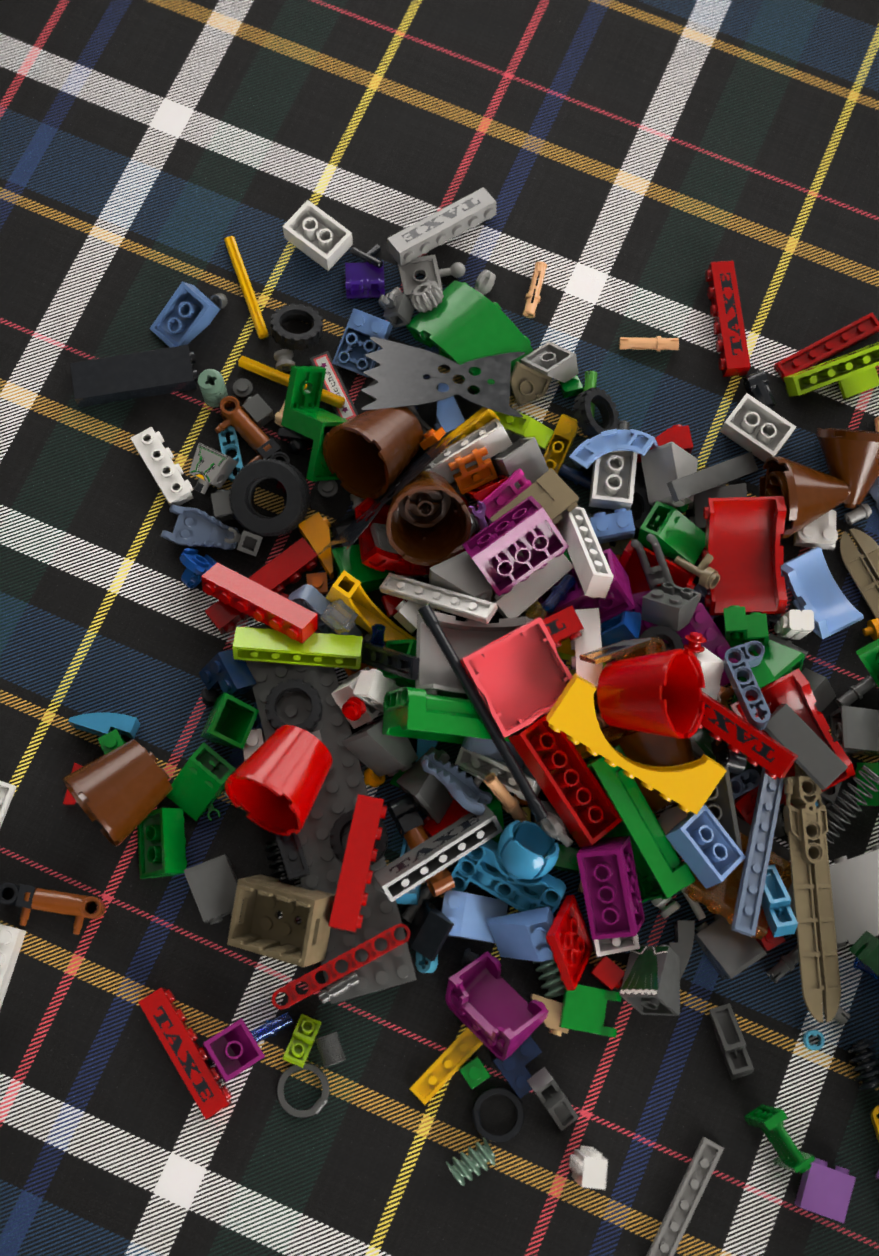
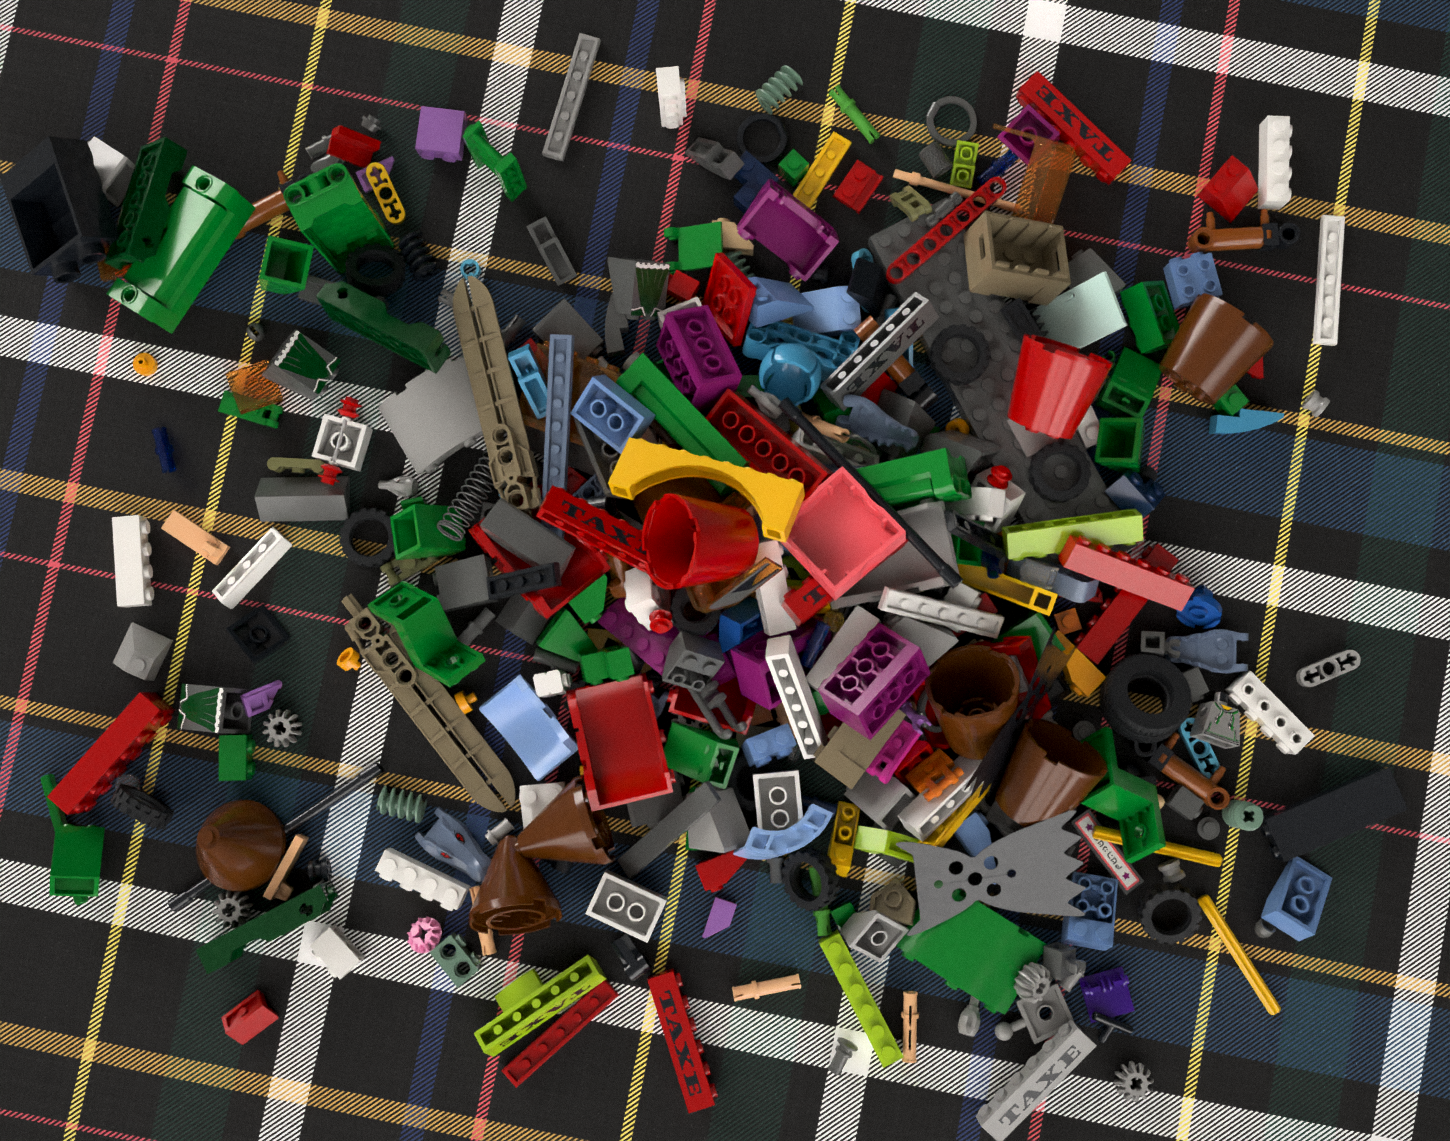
camera: 170 degrees right, 10 degrees up
(34, 727) = (1315, 403): none -> light grey wheel
(49, 954) = (1229, 189): none -> red slope
(111, 486) = (1333, 659): none -> light grey beam
(113, 870) = (1191, 277): none -> medium blue brick
(233, 850) = (1083, 317): none -> light aqua container
(233, 996) = (1044, 177): none -> clear orange windscreen
(318, 235) = (1176, 1036): white brick -> none
(354, 1034) = (916, 179): none -> light nougat bar
(356, 863) = (957, 324): red brick -> none
(361, 211) = (1141, 1078): none -> light grey gear
(367, 1007) = (910, 203): none -> olive plate
(399, 1118) = (855, 115): none -> bright green pin
(412, 1041) = (858, 186): none -> red plate
(431, 437) = (987, 802): orange plate -> none
(572, 316) = (860, 998): none -> lime brick
(594, 281) = (842, 1054): none -> dark grey pin
(677, 407) = (719, 917): none -> medium lavender tile
(707, 576) = (655, 706): dark tan piece -> none
(750, 687) = (595, 584): sand blue beam -> none
(814, 706) = (524, 581): none -> black tile

